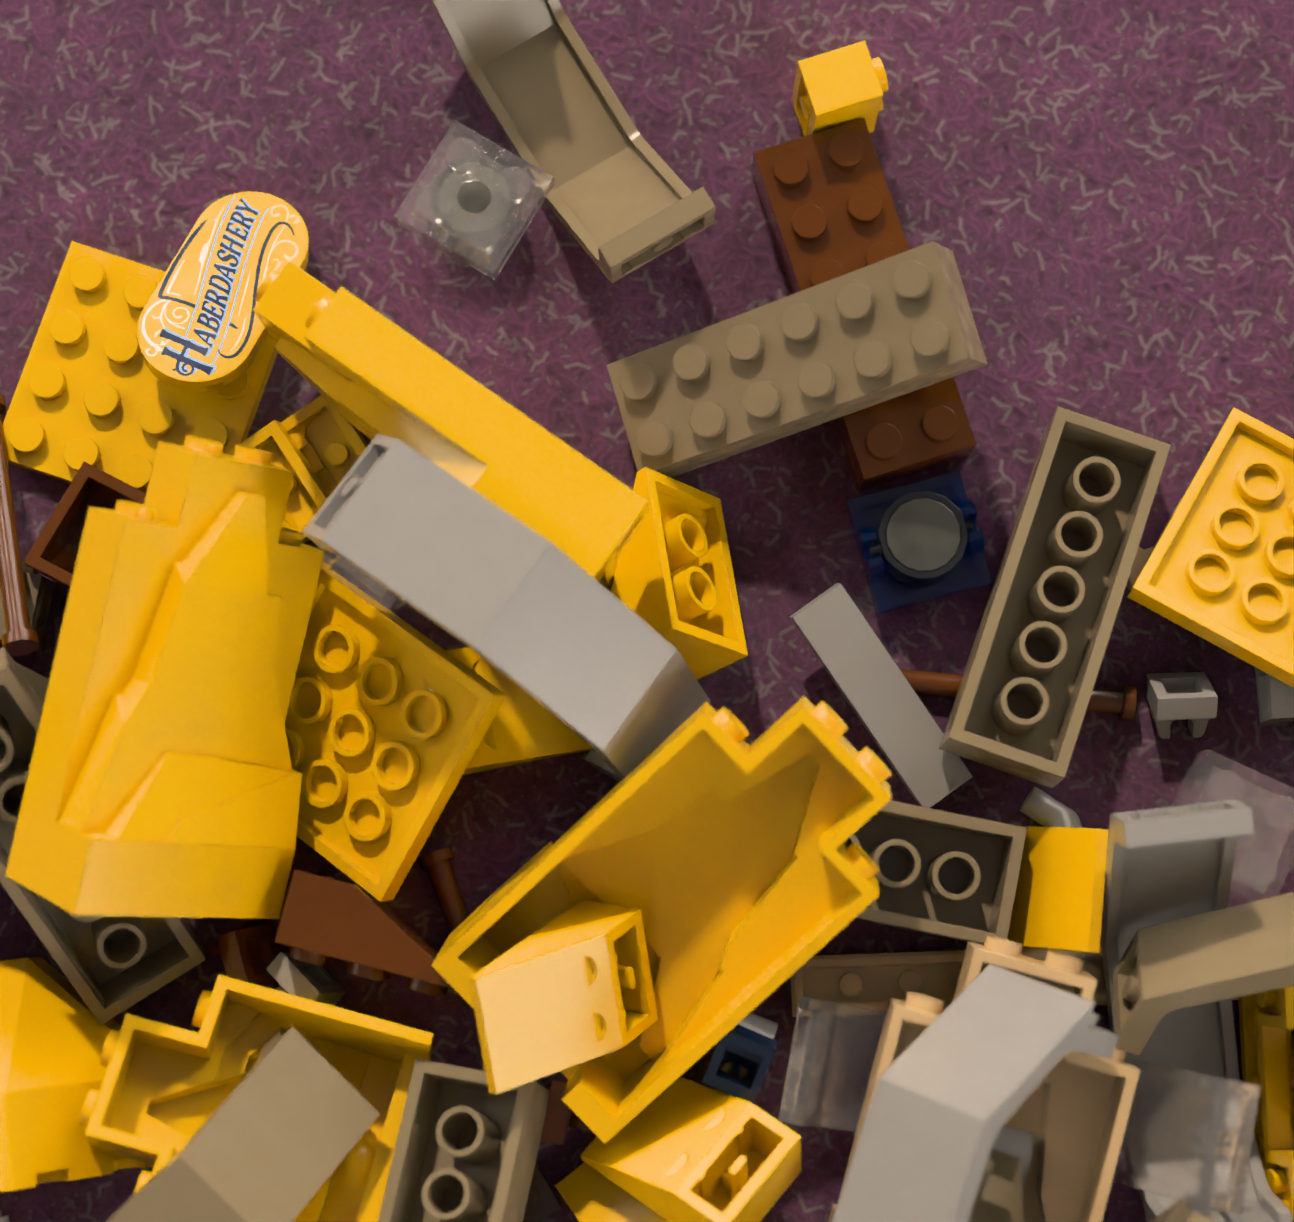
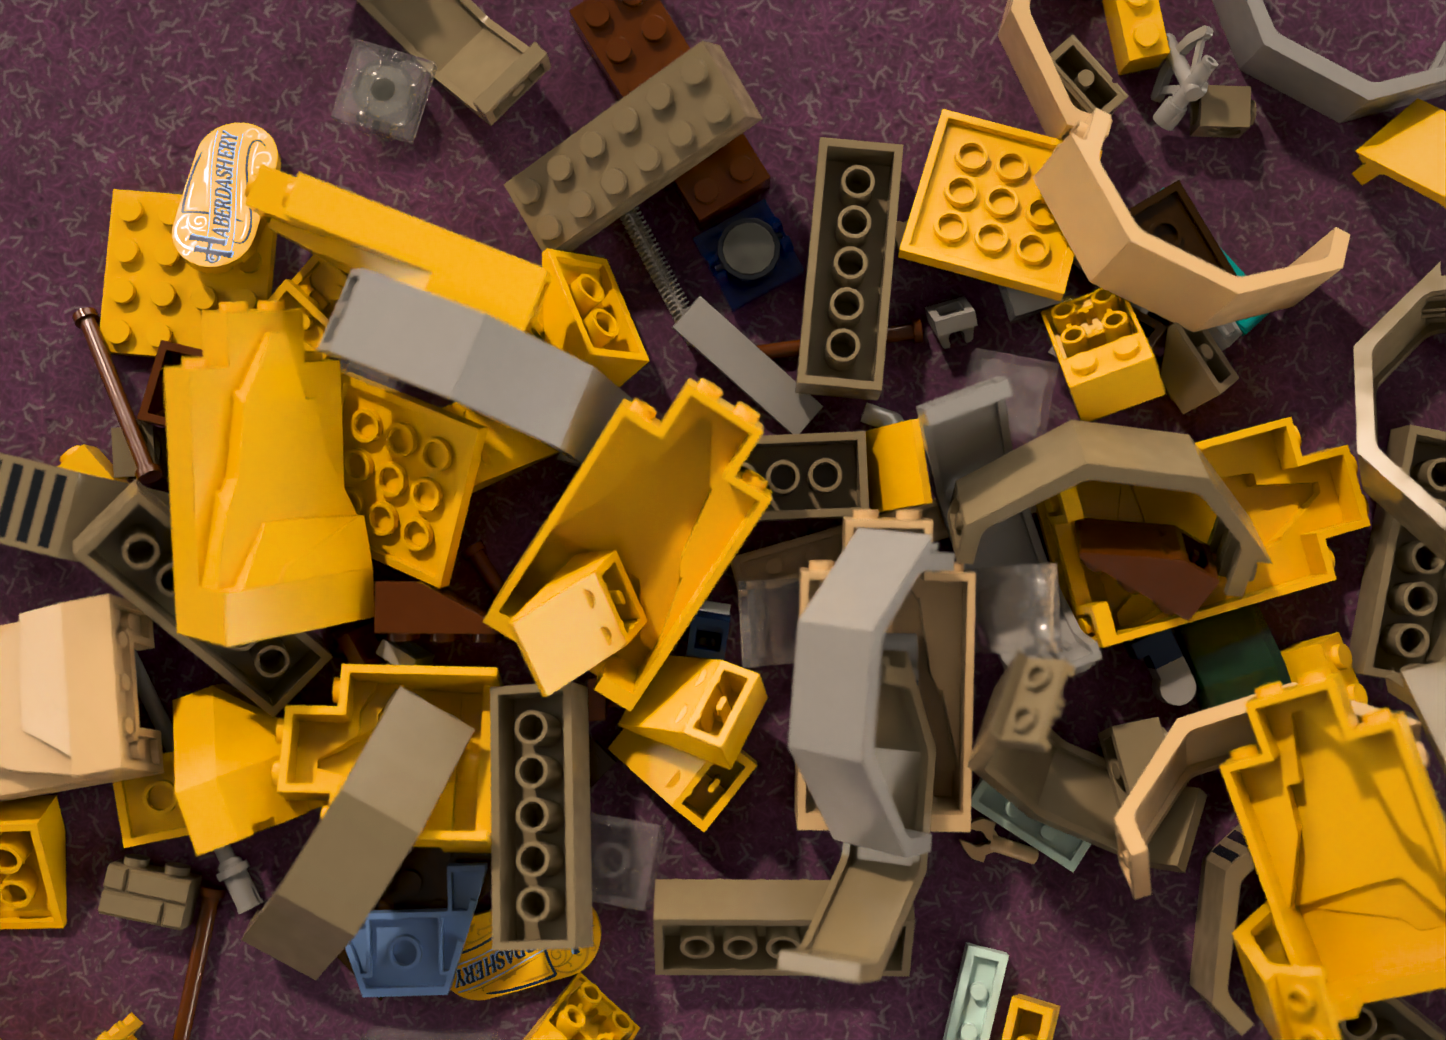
camera: 10 degrees left, 5 degrees up
(786, 524) = (655, 264): none -> light grey axle

